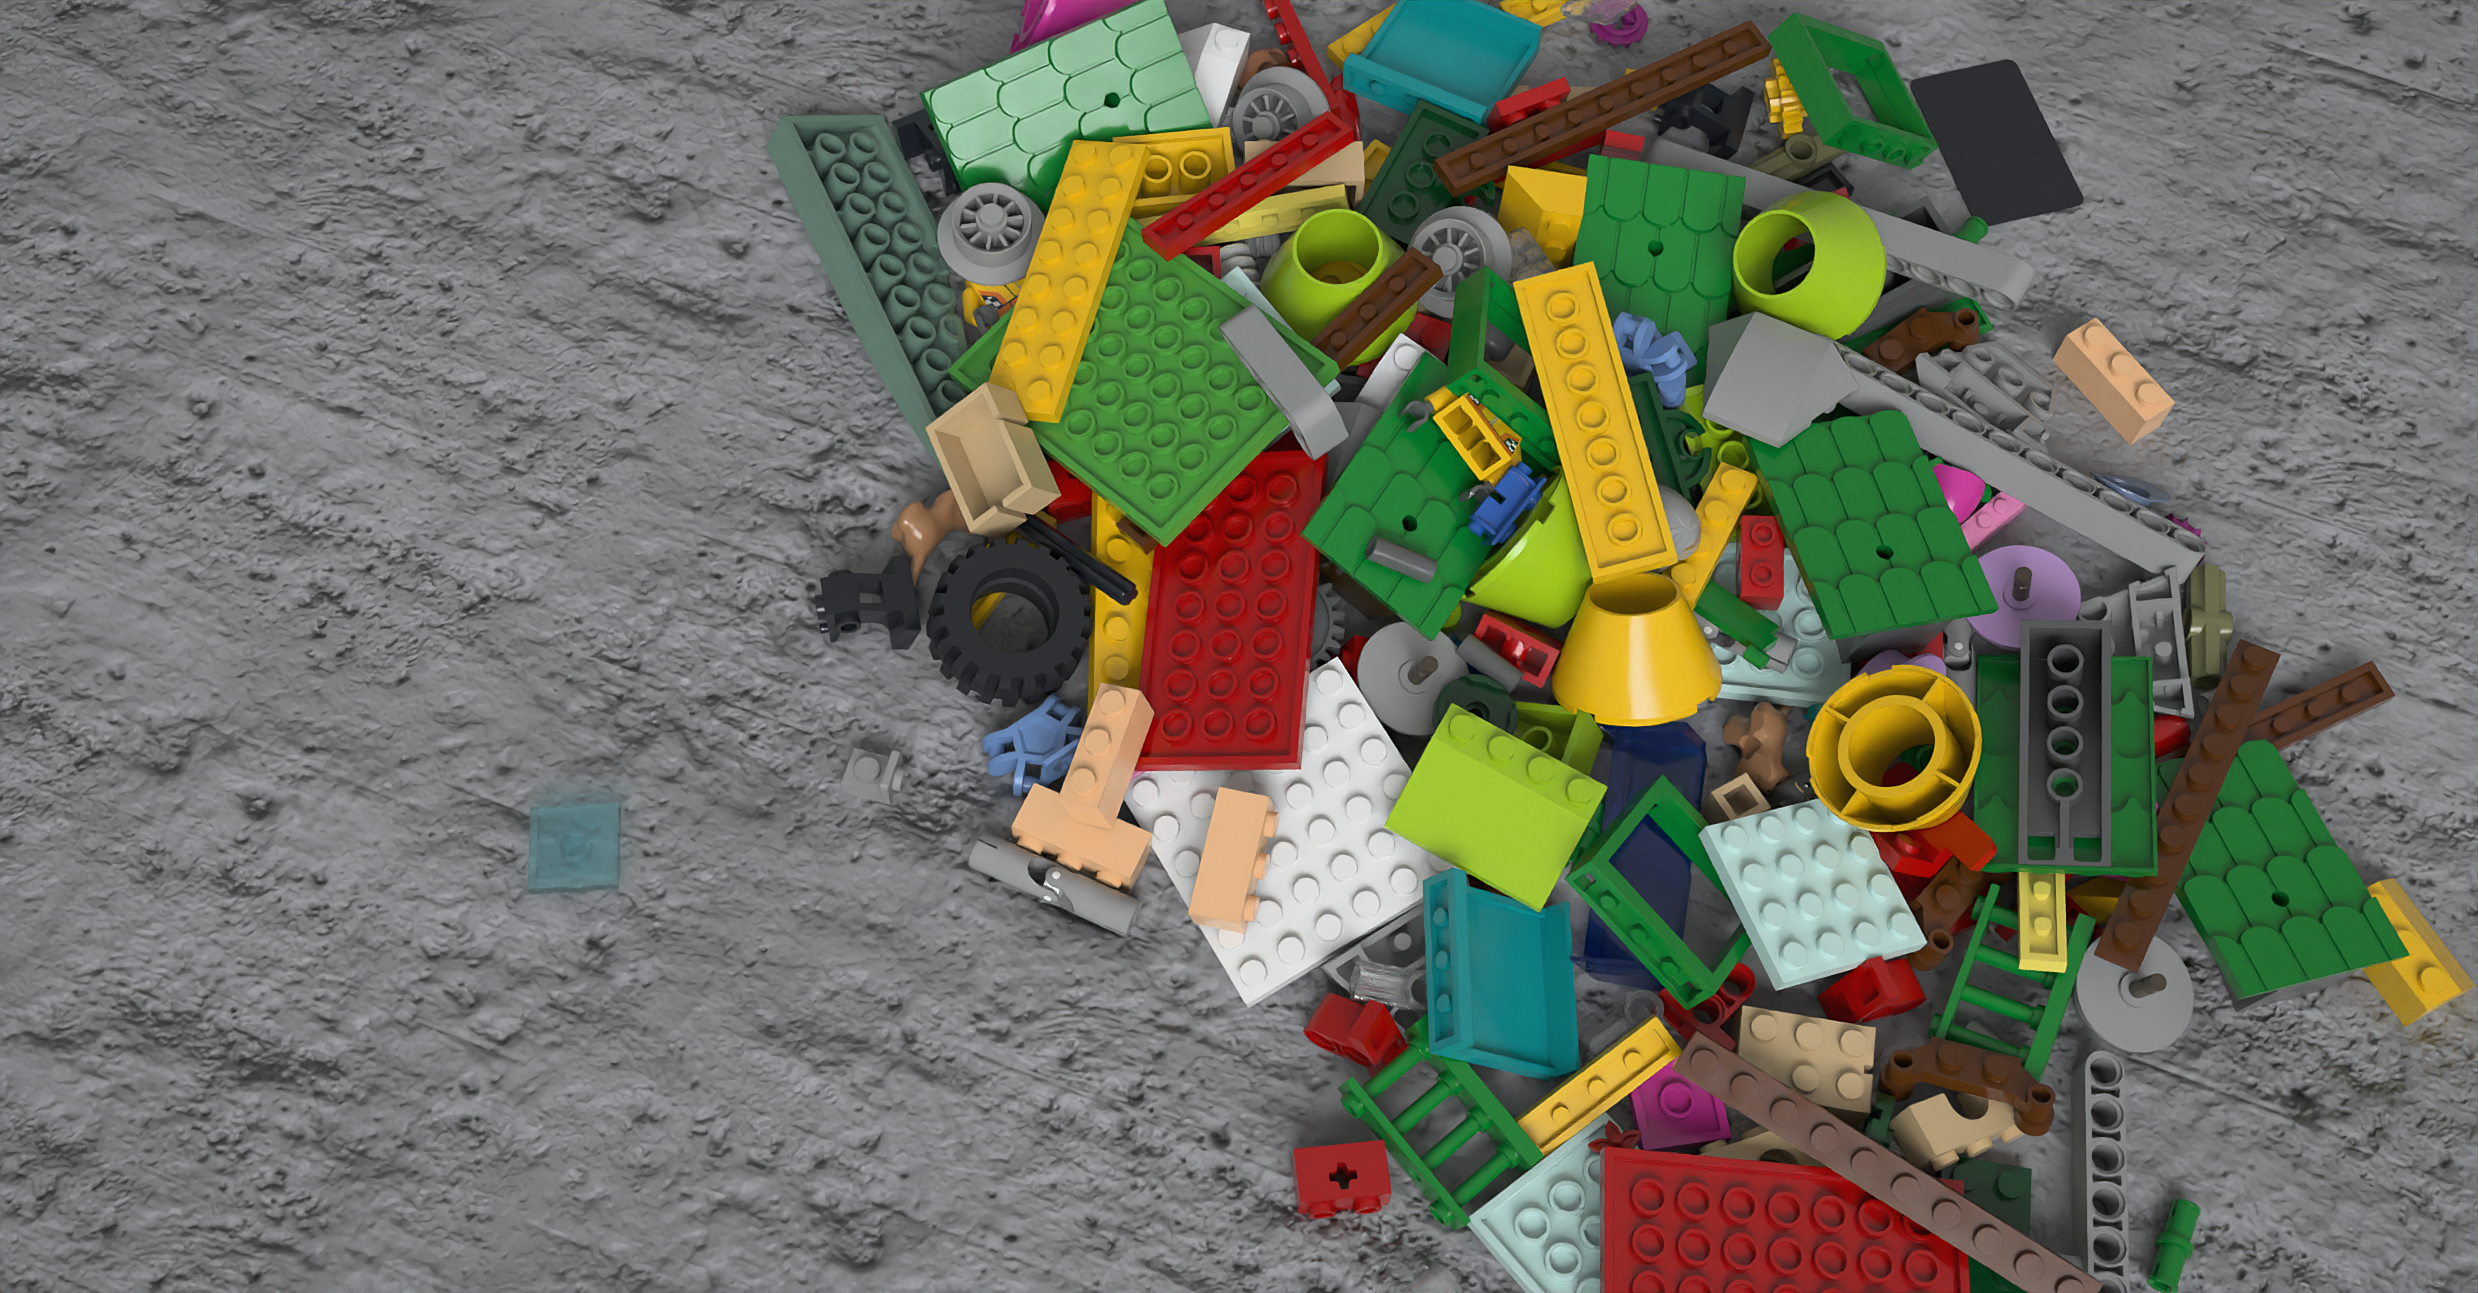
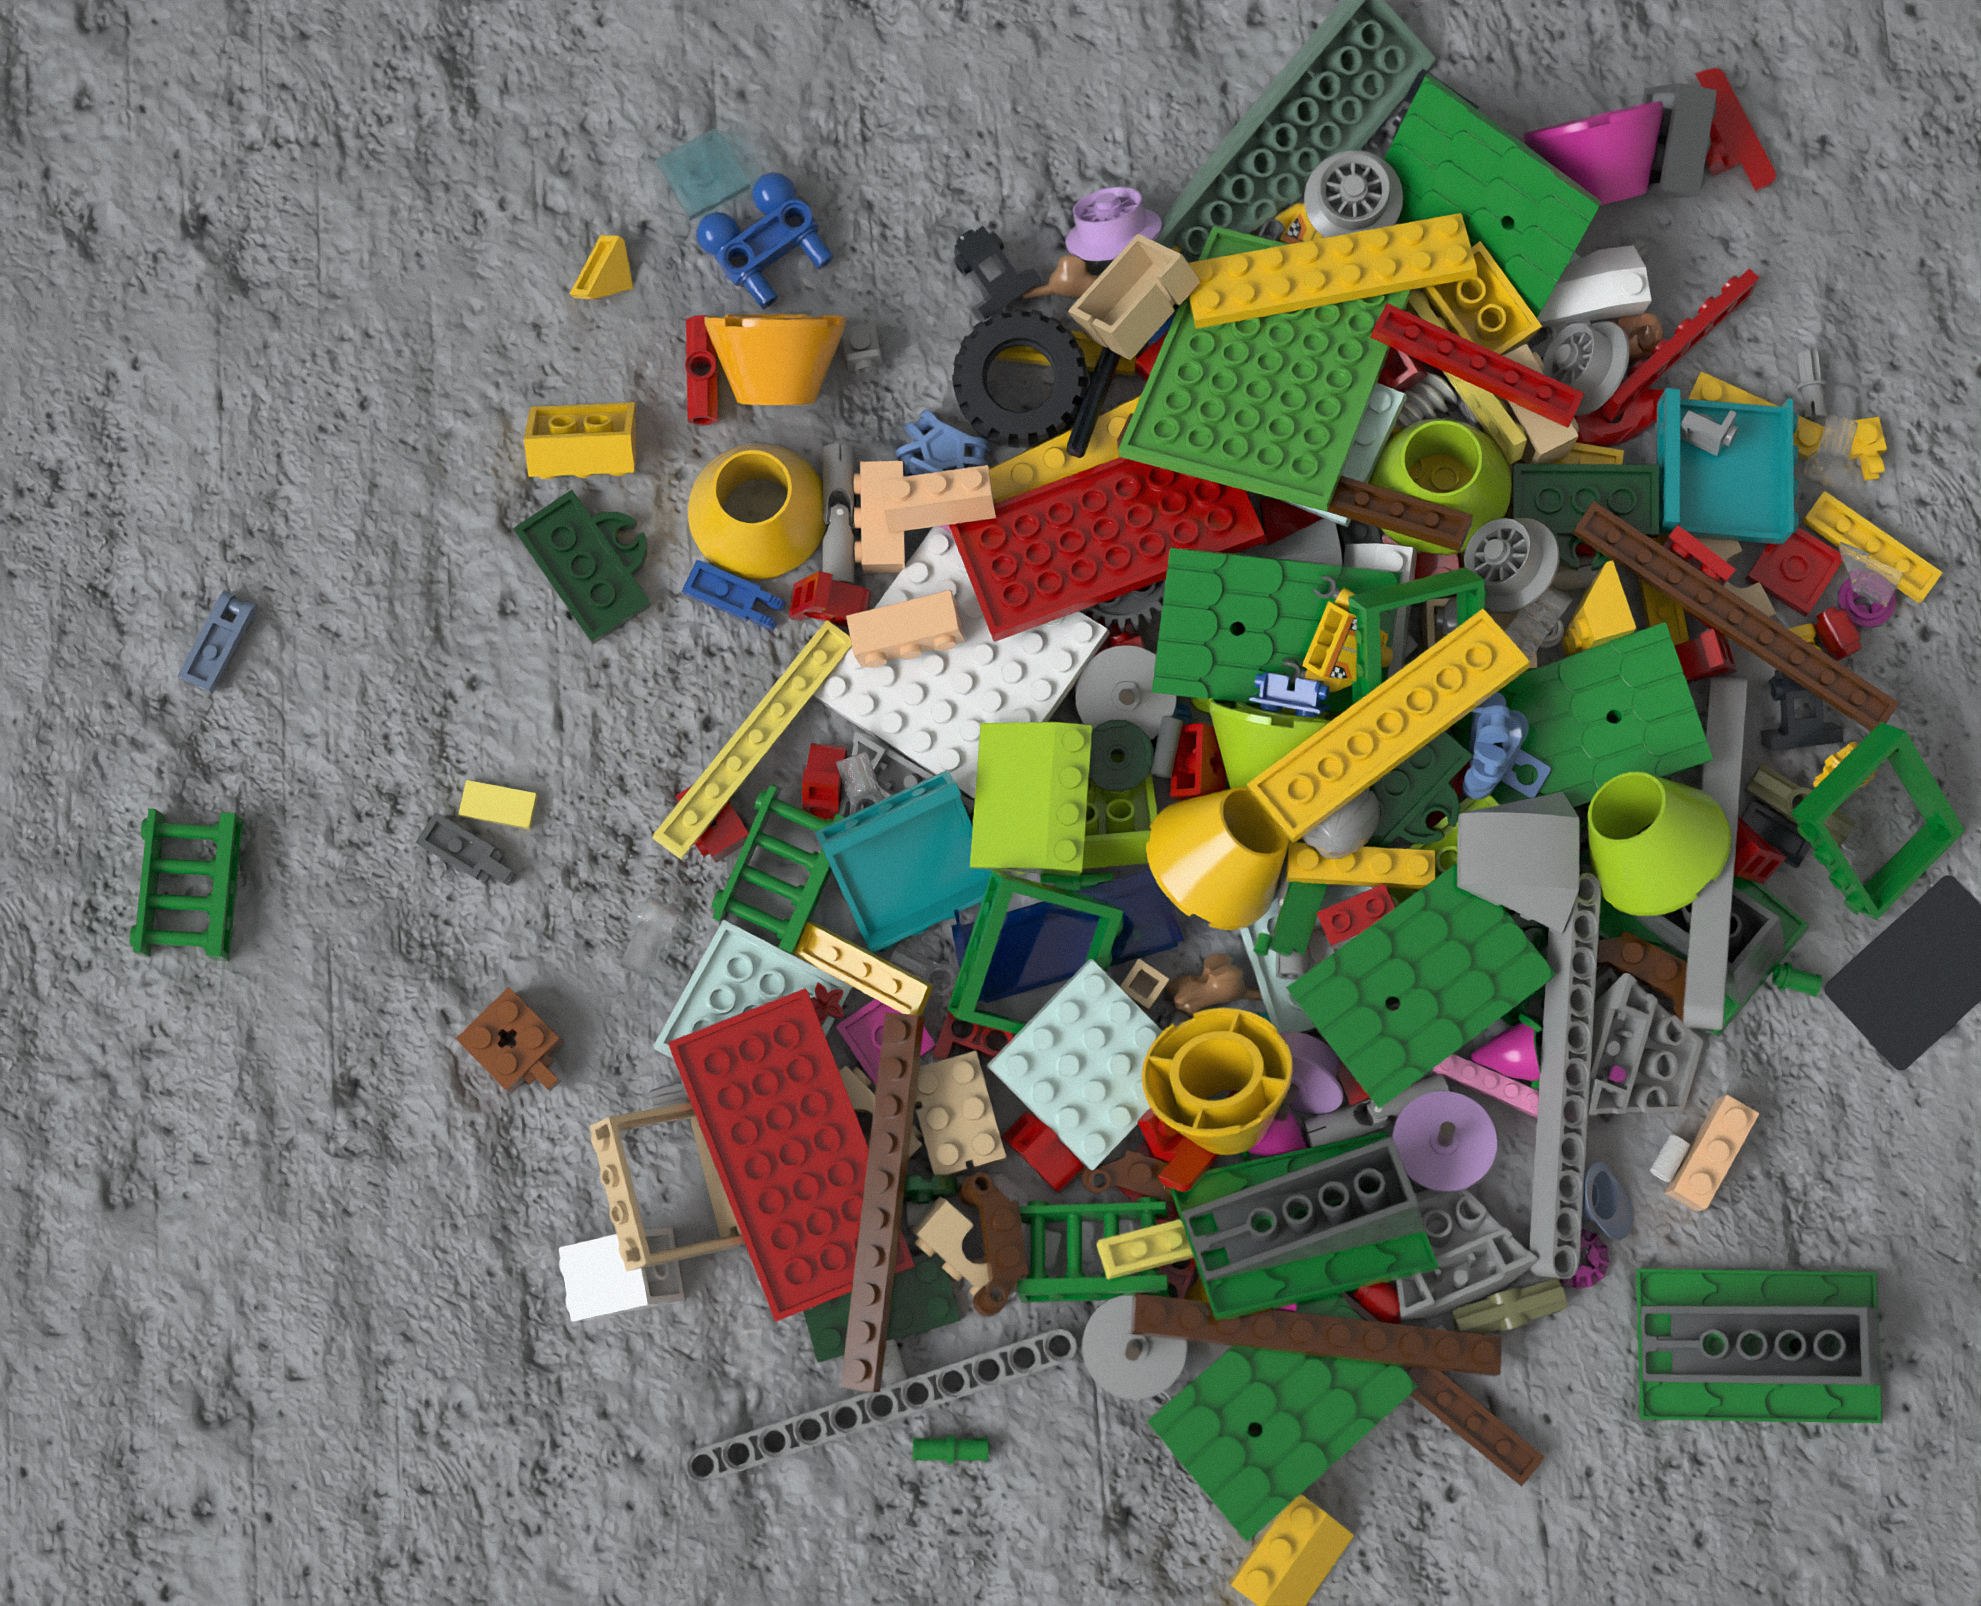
camera: 70 degrees right, 15 degrees up
(621, 1007) = (605, 270): none -> yellow slope
(661, 859) = (766, 239): none -> blue piece
(781, 940) = (701, 390): none -> red piece
(812, 1122) = (581, 440): none -> yellow slope
(844, 852) = (775, 355): none -> light orange cone
(890, 462) = (1109, 222): none -> lavender piece
(963, 1184) = (588, 563): none -> dark green plate
(1008, 1012) = (764, 547): none -> yellow cone
(1084, 1040) = (730, 594): none -> blue hinge
(1147, 938) = (827, 599): none -> red tile
(1279, 1087) = (753, 740): none -> light yellow plate
(1285, 381) = (1289, 470): light grey beam -> none
(1400, 559) = (1196, 634): dark grey hinge -> none
(1408, 50) = (1706, 433): none -> light grey bracket
(1569, 54) = (1796, 570): none -> red plate
(1639, 52) = (1838, 633): none -> red brick
(2012, 414) = (1617, 1074): none -> magenta piece
(2115, 428) = (1667, 1161): none -> white piece
(2318, 425) = (1725, 1351): none -> piece

